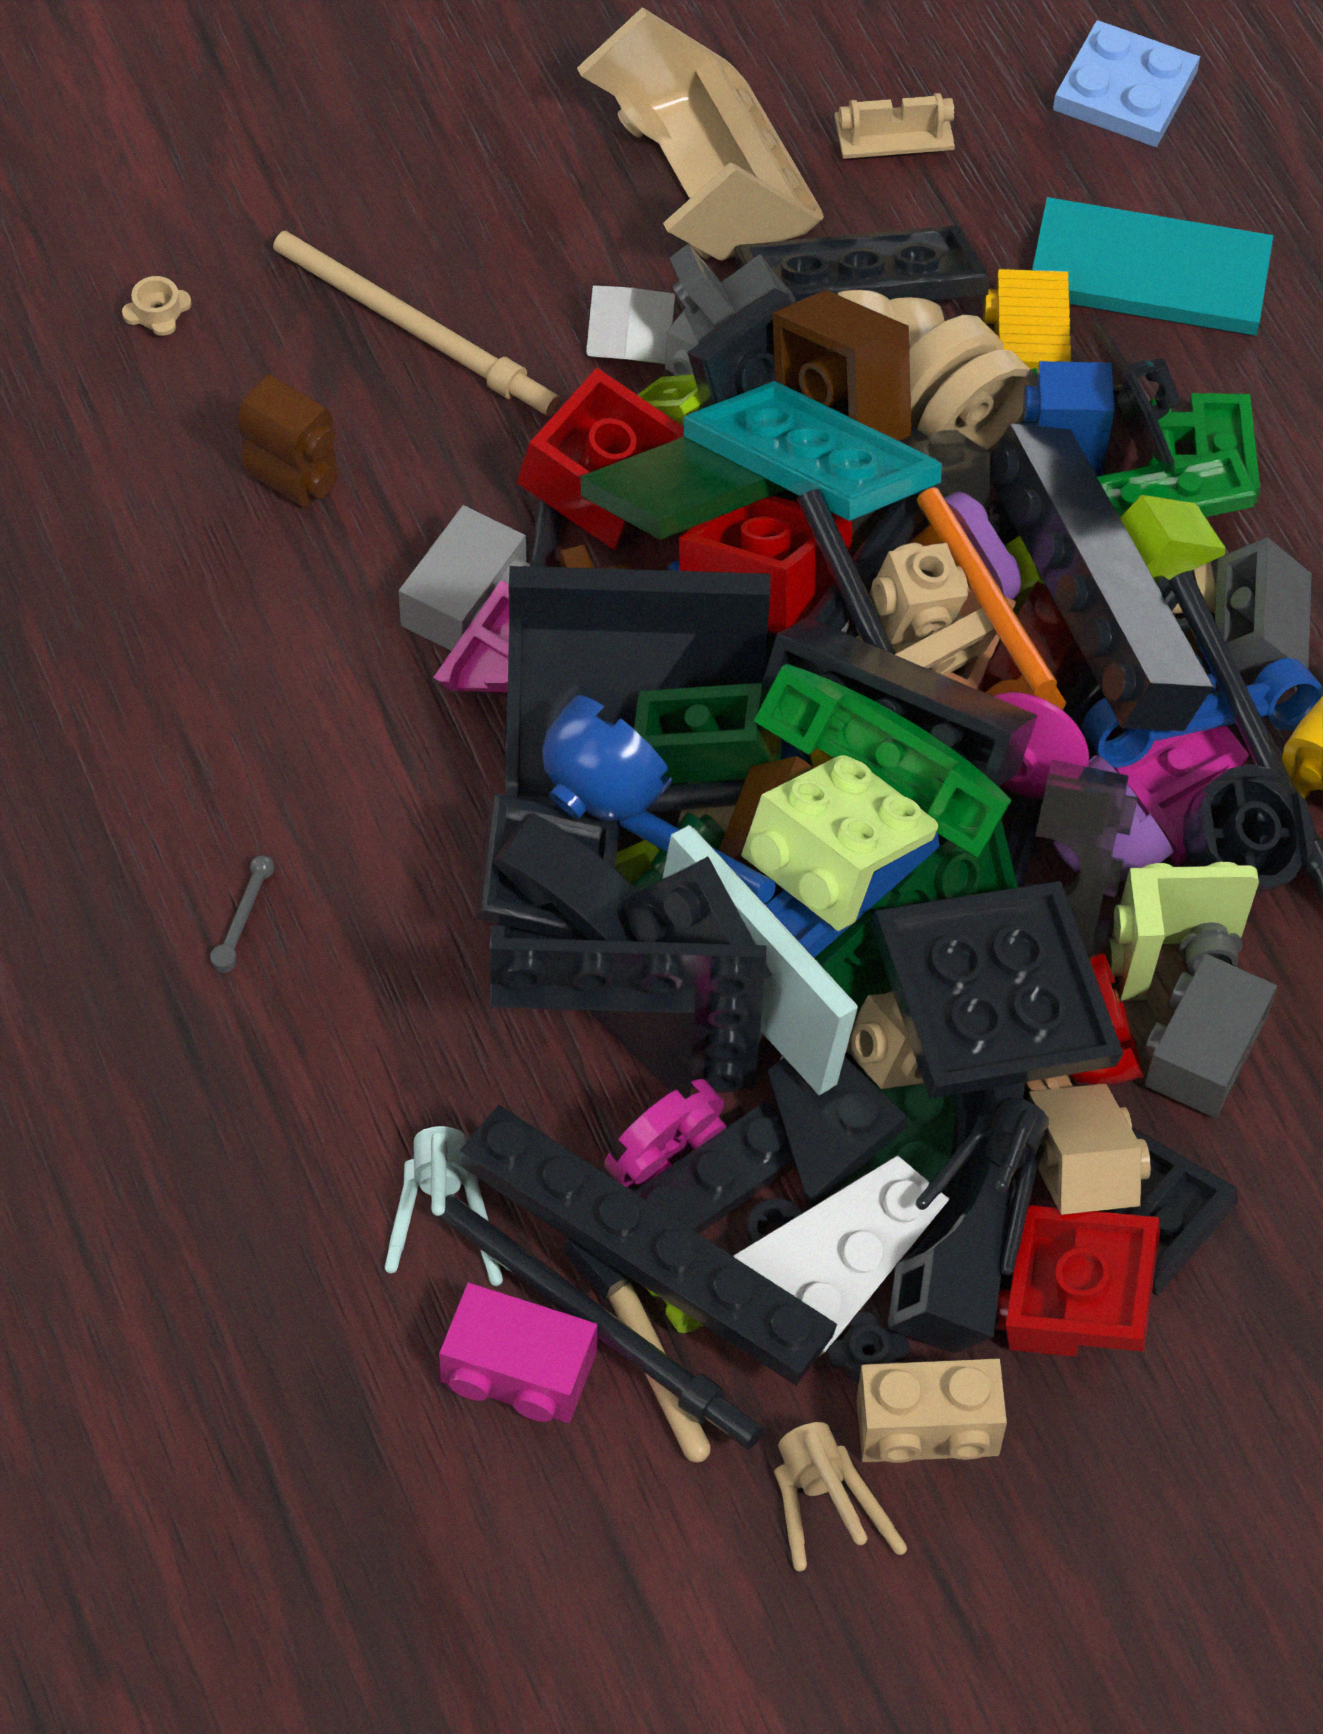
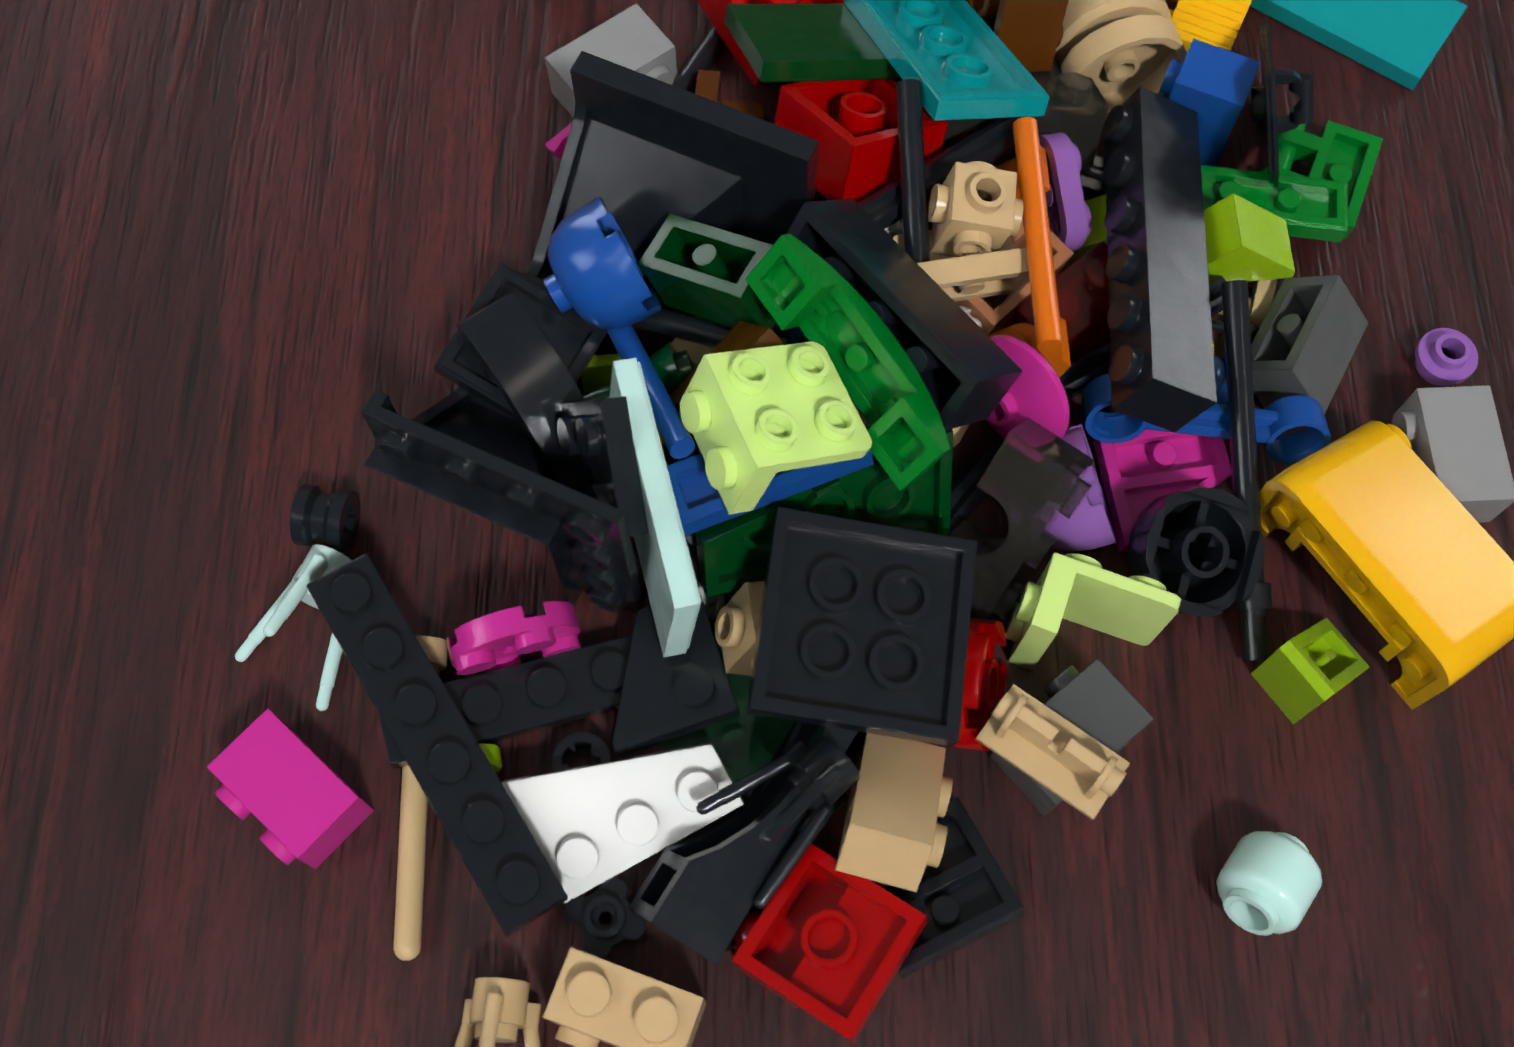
camera: 25 degrees right, 10 degrees up
(224, 956) = (256, 322): dark grey hinge -> none
(411, 1105) = (325, 517): none -> black wheel
(697, 1394) = (420, 903): black bar -> none
(1204, 1040) = (1053, 751): none -> tan hinge
(1210, 939) = (1113, 646): dark grey plate -> none

